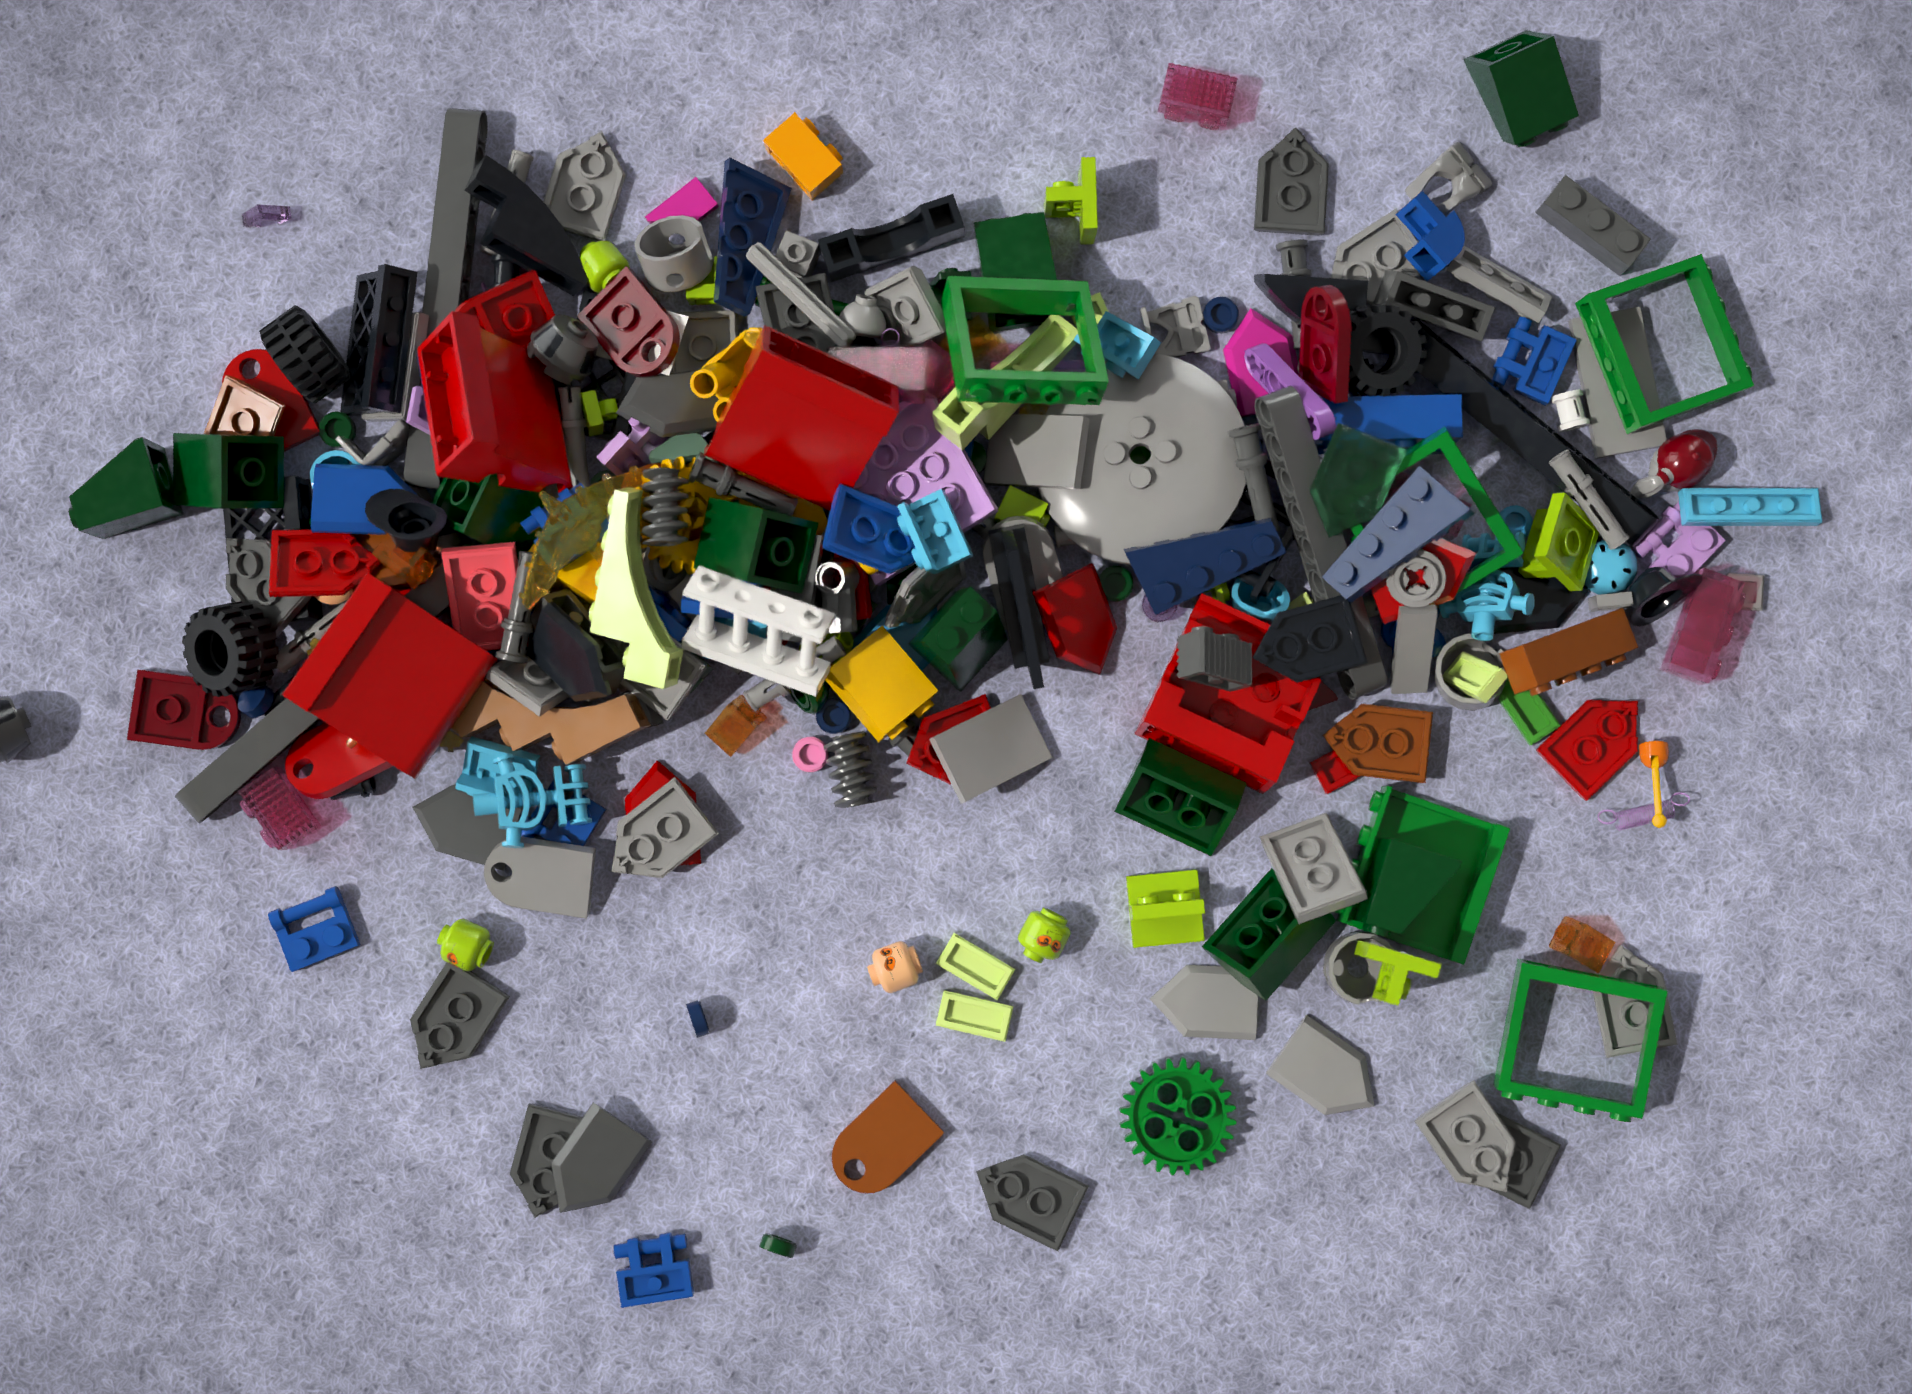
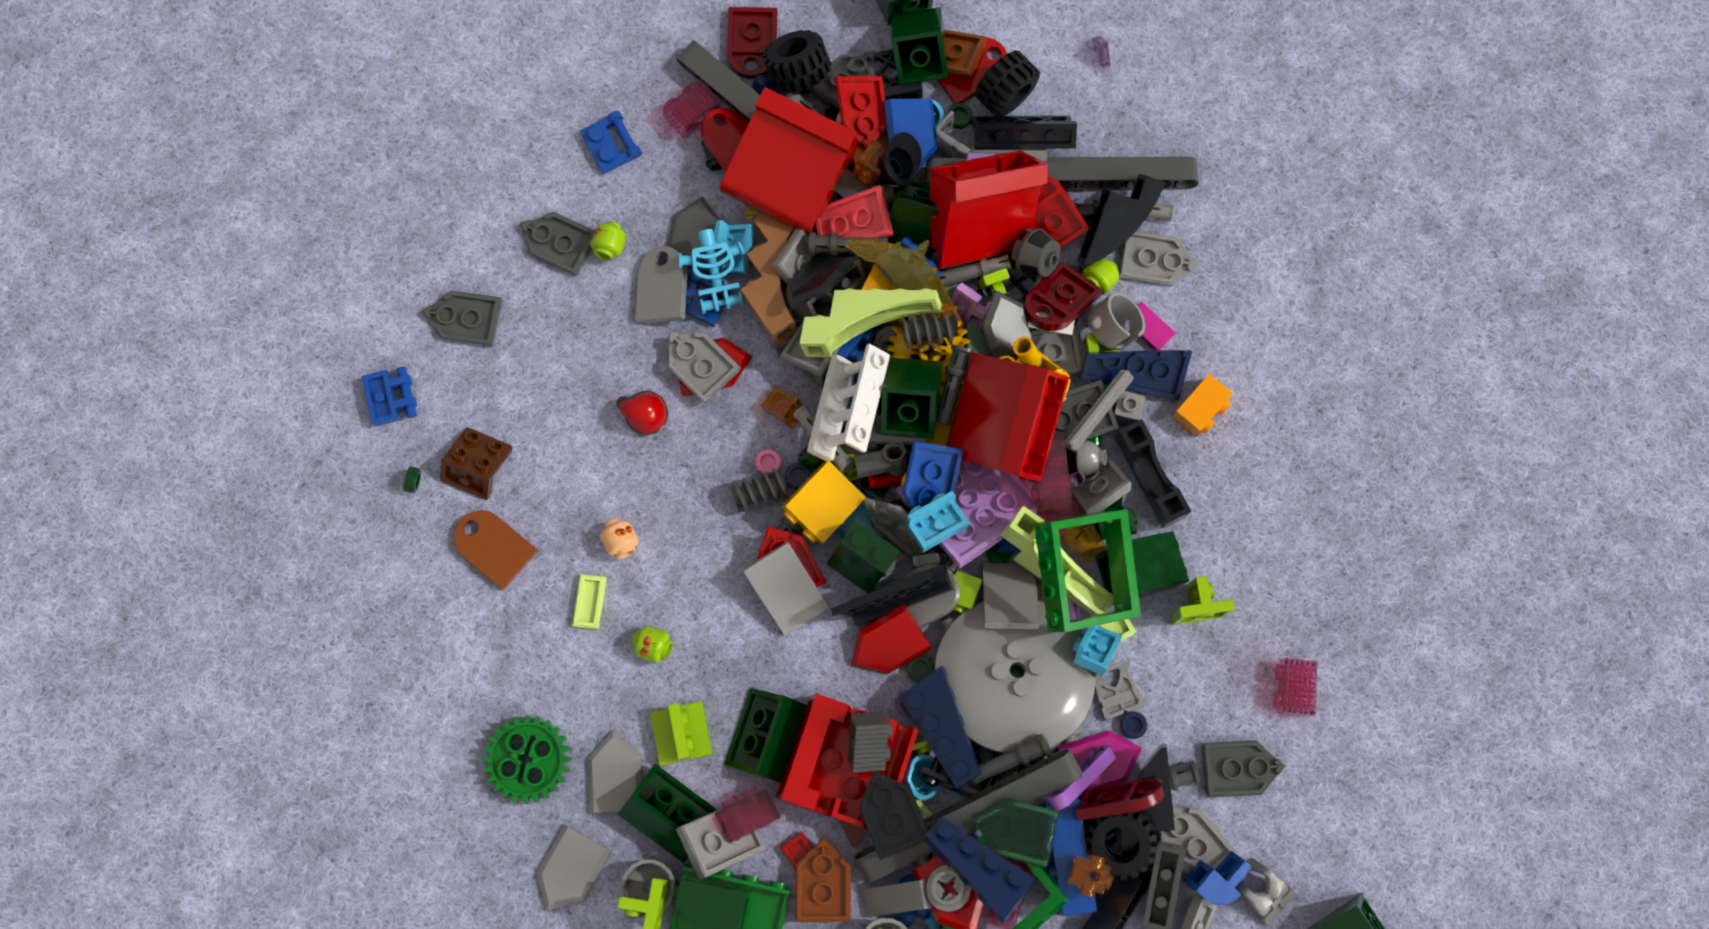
camera: 80 degrees right, 10 degrees down
(596, 1160) = (464, 347): dark grey tile -> none
(698, 1018) = (570, 405): dark blue tile -> none
(719, 917) = (644, 412): none -> red piece
(762, 1157) = (474, 462): none -> reddish brown bracket
(975, 562) = (927, 559): none -> light grey tile
(975, 966) = (625, 598): yellowish green tile -> none
(1032, 1198) = (458, 659): dark grey tile -> none
(1285, 830) = (748, 814): none -> clear pink brick
(1411, 403) = (1080, 875): none -> clear orange brick

